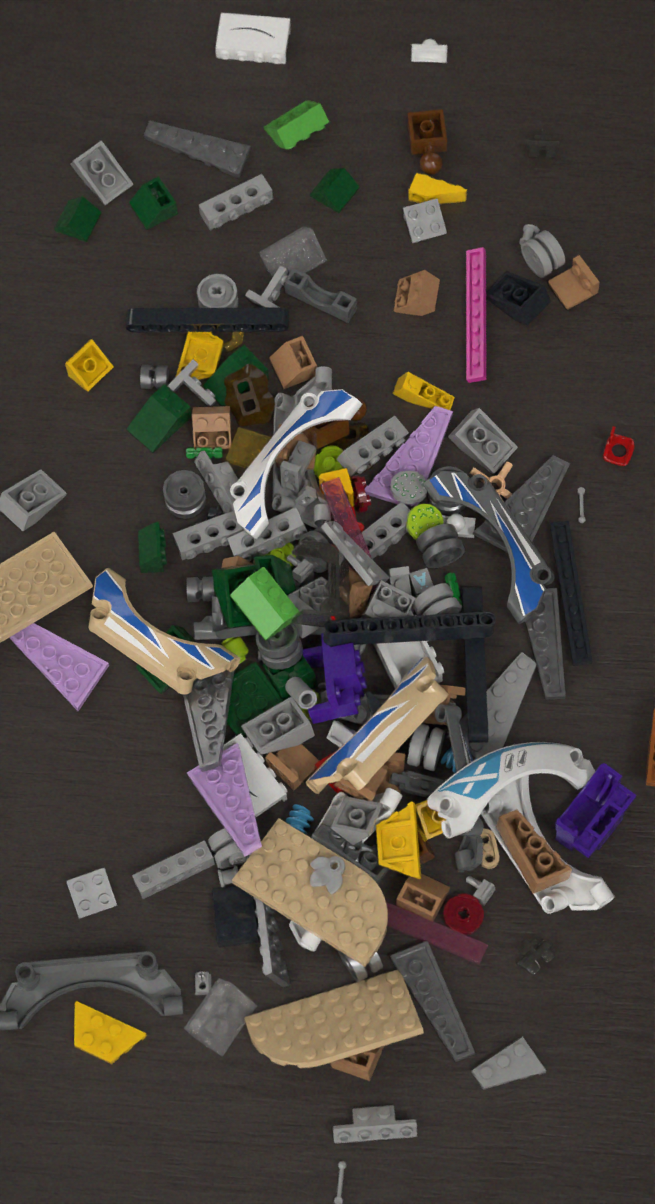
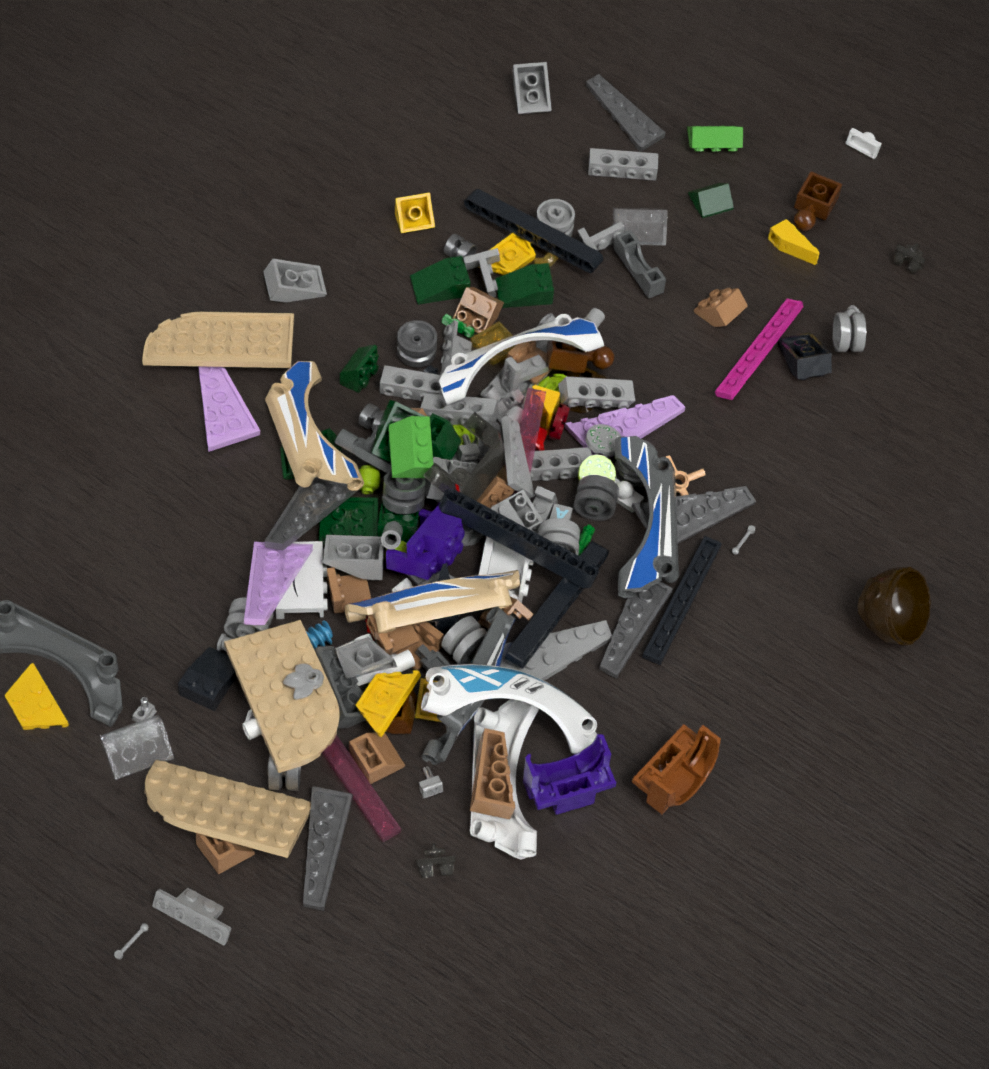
camera: 25 degrees right, 10 degrees down
(78, 219) = (489, 112): dark green slope -> none
(91, 893) = (110, 590): light grey hinge -> none
(153, 203) = (555, 130): dark green slope -> none
(173, 869) = (187, 611): light grey brick -> none
(253, 38) = (725, 59): white panel -> none
(258, 392) = (533, 303): dark brown piece -> none
(270, 945) = (218, 717): flat silver wing -> none
(293, 363) = (580, 298): medium nougat slope -> none
(421, 392) = (670, 380): yellow slope -> none
(424, 220) = (768, 258): light grey hinge -> none
(458, 904) = (396, 804): dark red plate -> none
(482, 440) = (694, 442): light grey slope -> none
(490, 850) = (459, 755): tan plate -> none
(509, 1065) = (348, 938): light grey wing -> none
(575, 284) = (861, 372): medium nougat bracket -> none
(616, 439) = (807, 505): red piece -> none

